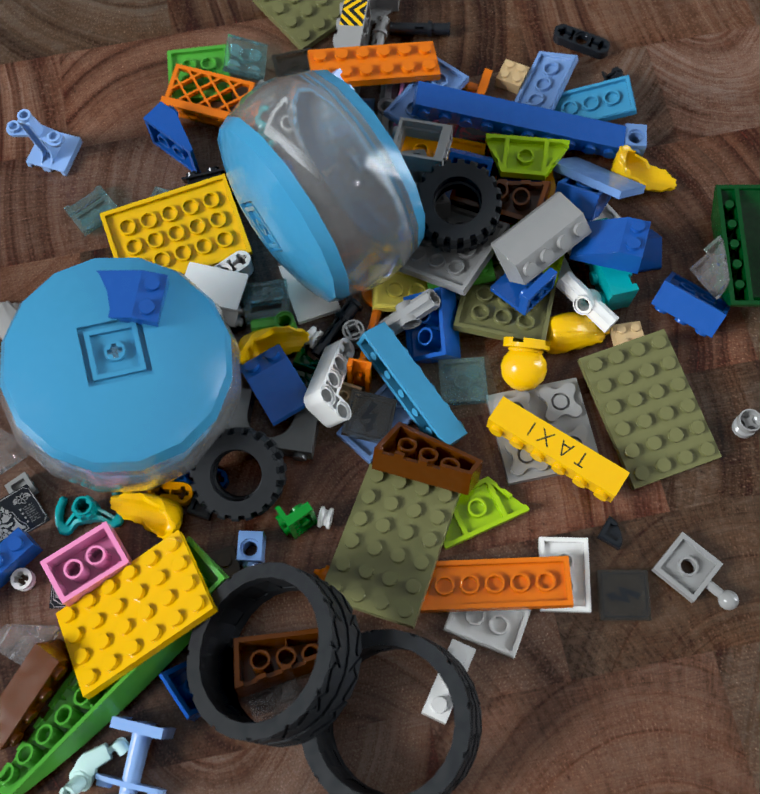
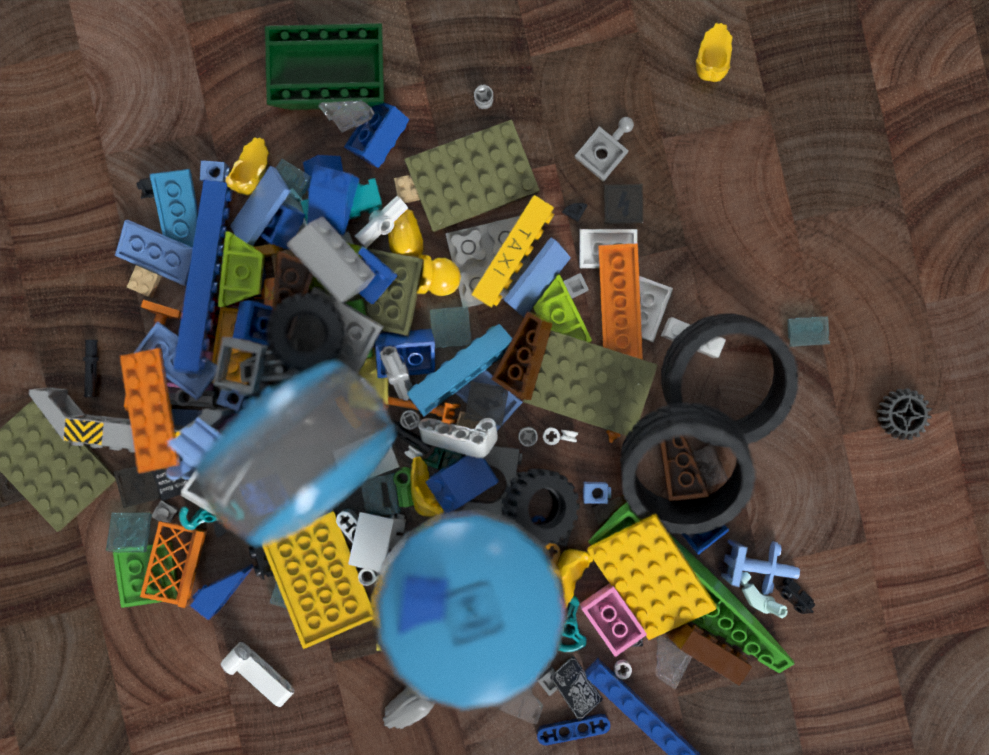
camera: 100 degrees left, 20 degrees up
(51, 148) = (230, 703): light blue piece -> none
(79, 174) = (258, 674): none -> white beam
(89, 218) = (300, 657): clear light blue plate -> none
(298, 521) = (576, 458): green bracket -> none
(325, 462) = (527, 436): none -> light grey wheel
(332, 493) = (555, 440): none -> white bush
(379, 33) = (98, 406): light grey pin -> none
(515, 530) = (576, 285): none -> light grey plate
(526, 480) = (537, 277): none -> medium blue tile
(592, 51) = (95, 215): black beam -> none
(632, 208) = (295, 179): none -> clear light blue plate

